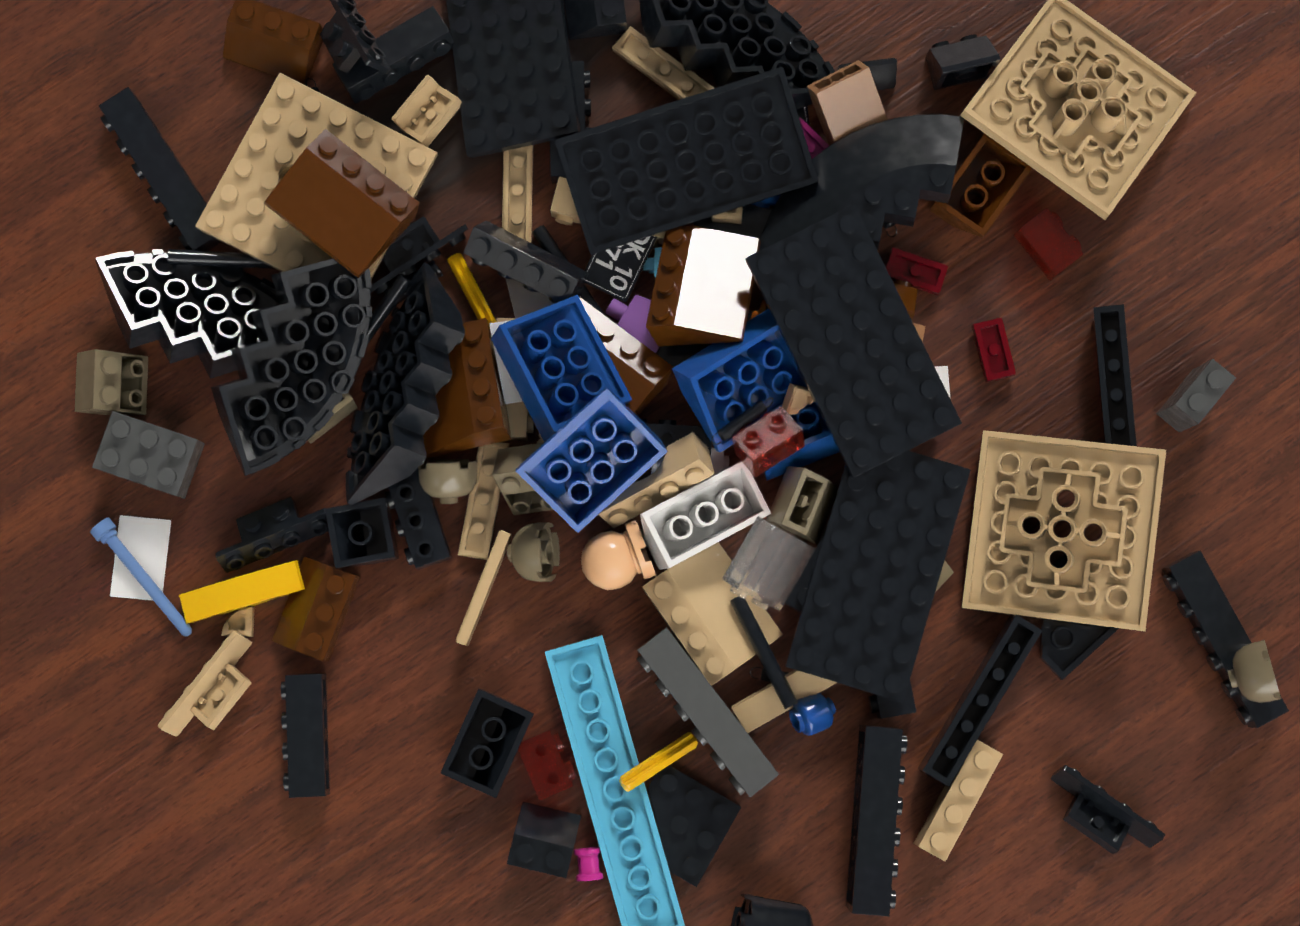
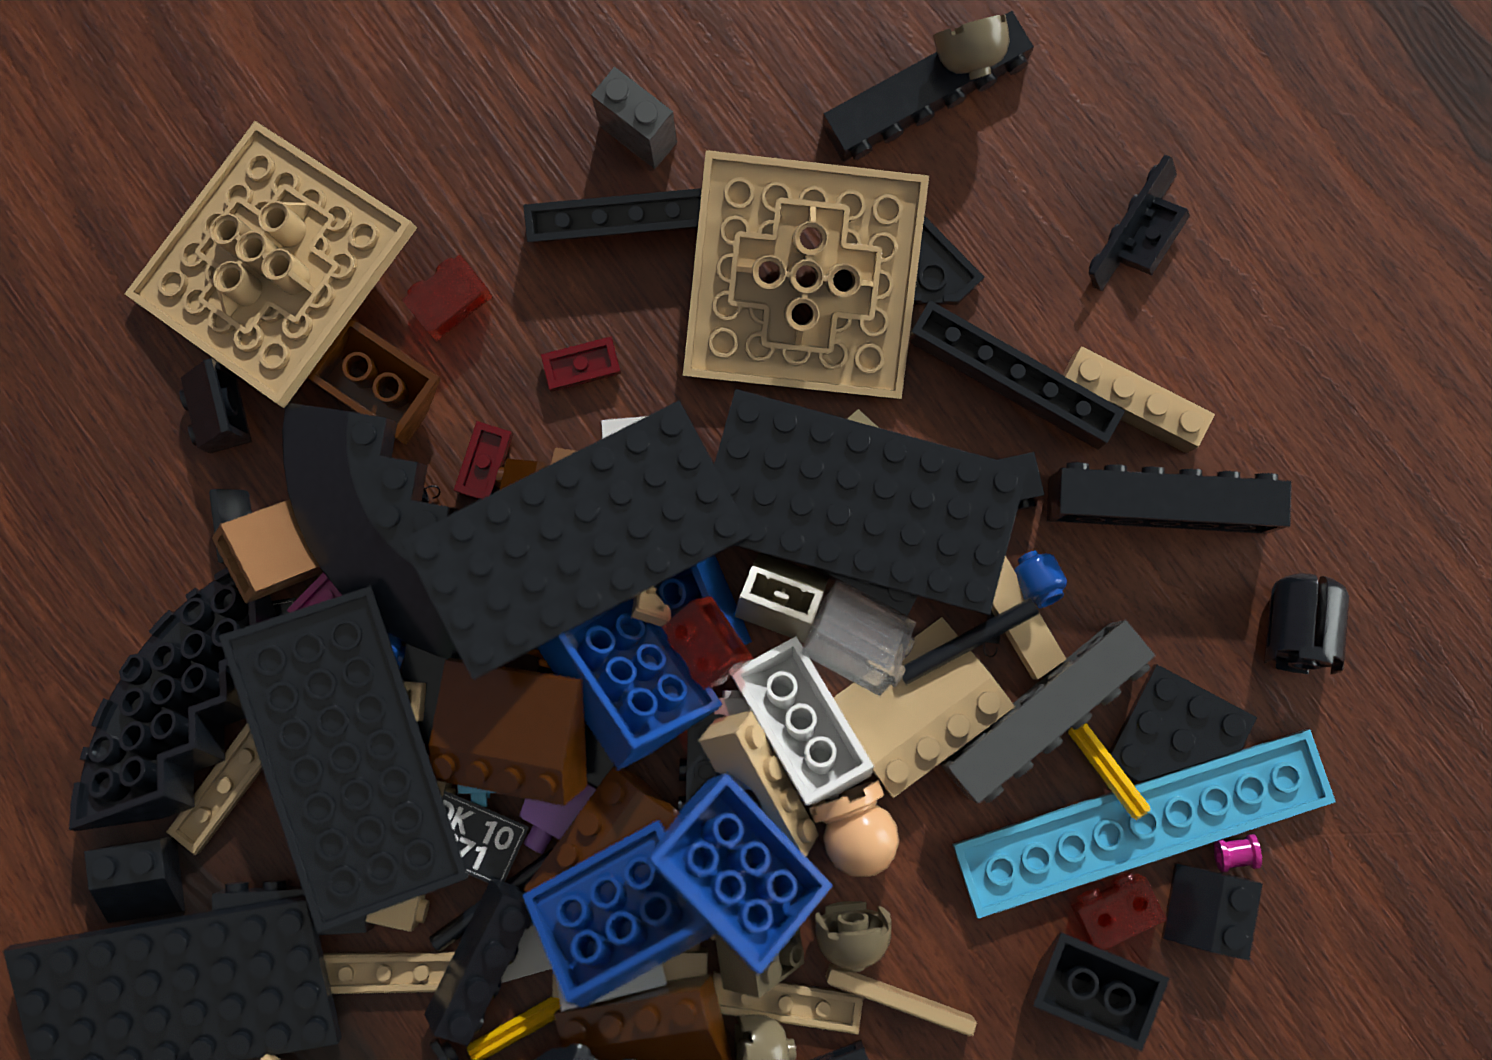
camera: 85 degrees left, 0 degrees up
(742, 420) = (682, 676): black piece -> none

